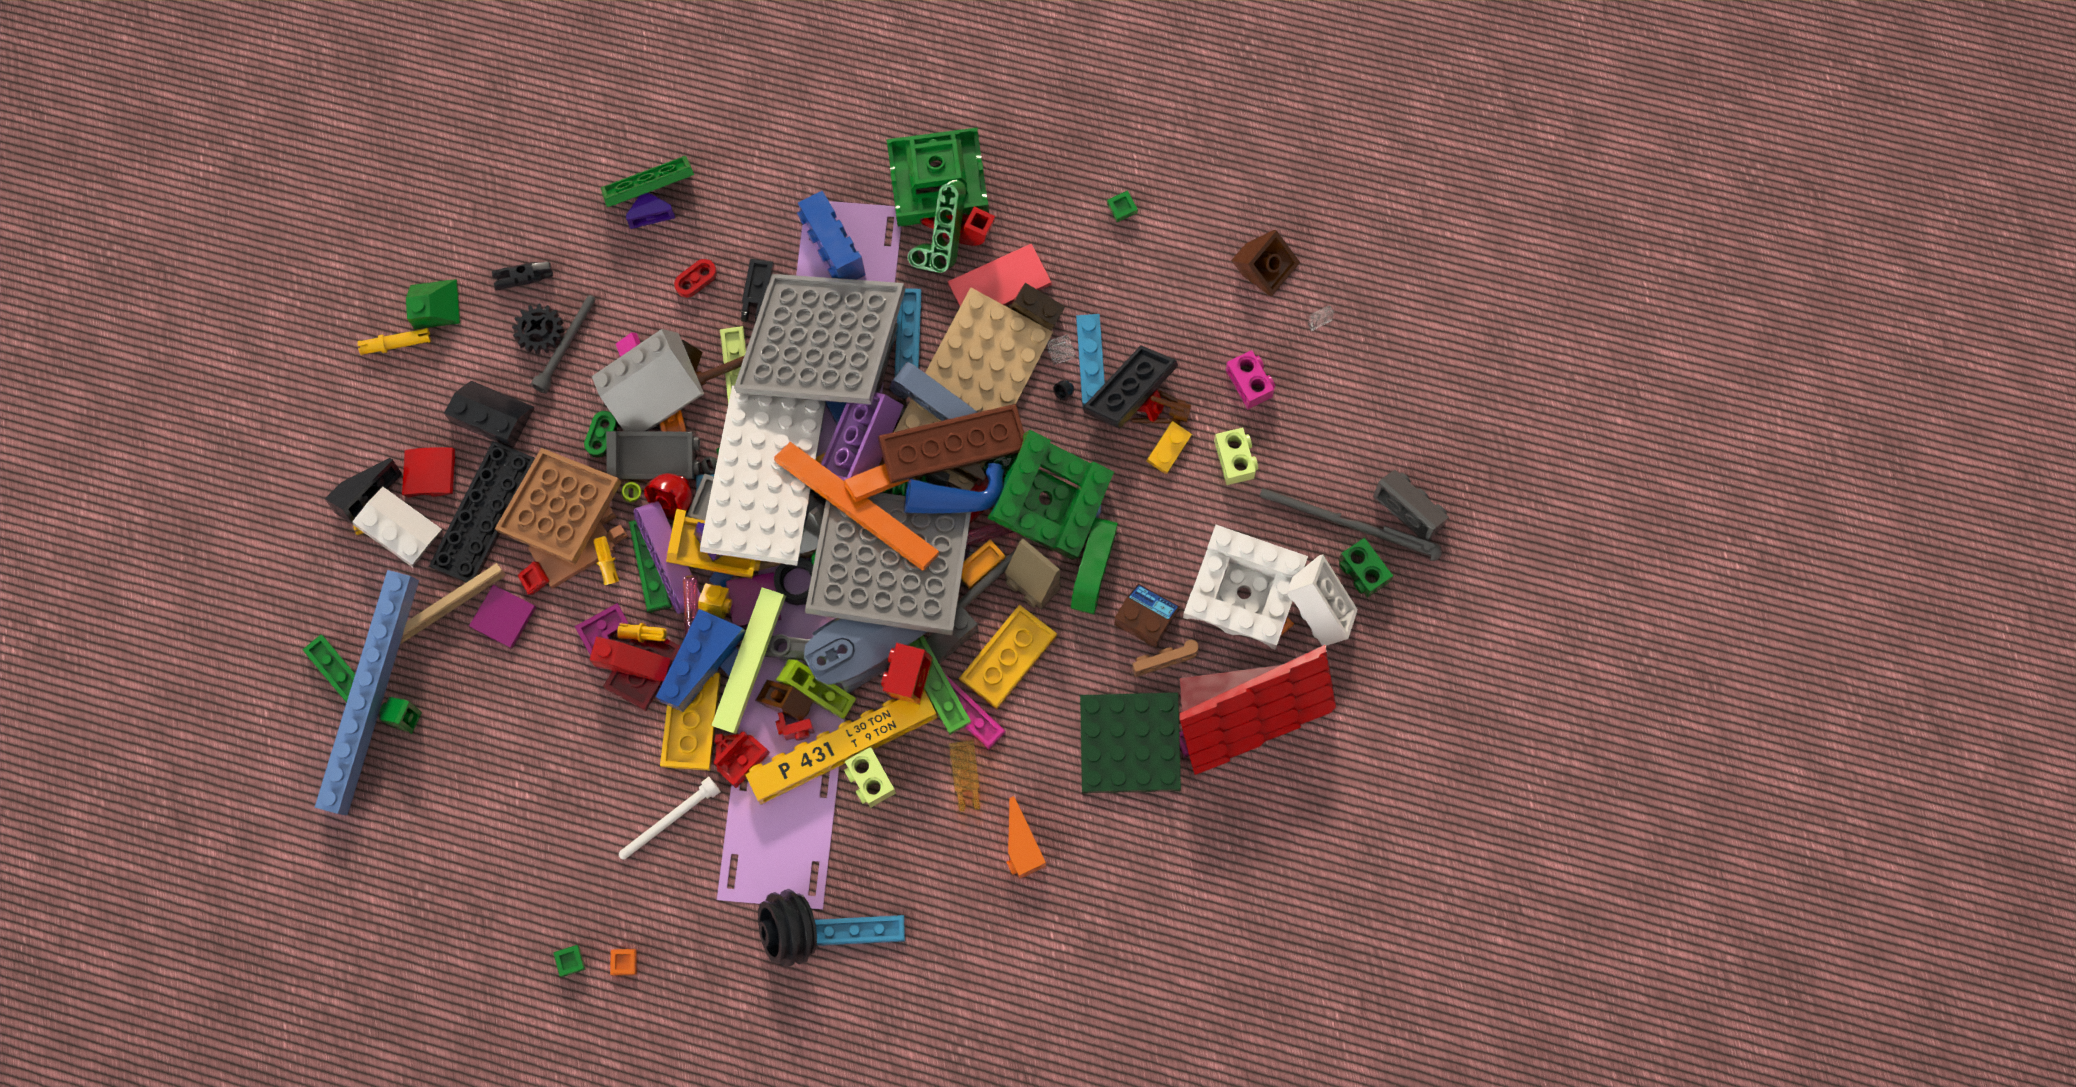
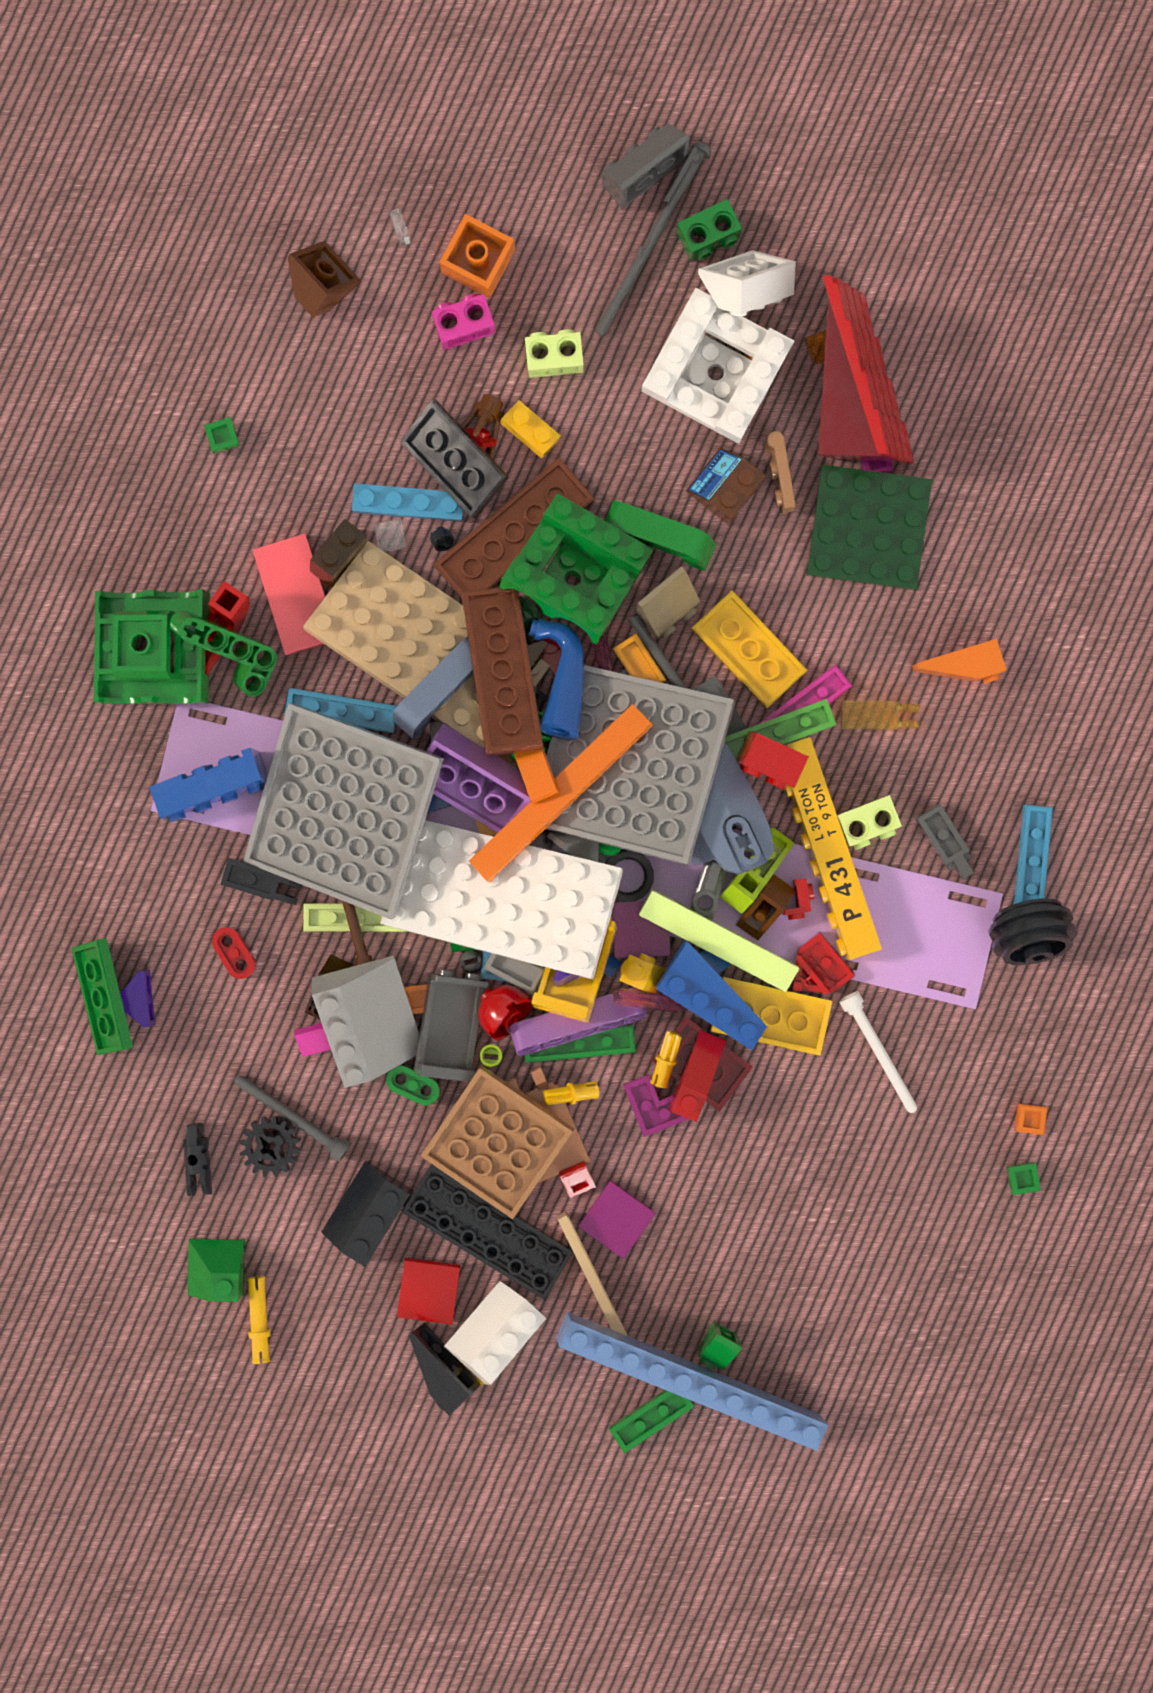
camera: 85 degrees left, 15 degrees up
(862, 849) = (946, 840): none -> dark grey hinge
(1069, 432) = (492, 546): none -> copper tile
(1305, 380) = (477, 256): none -> orange brick

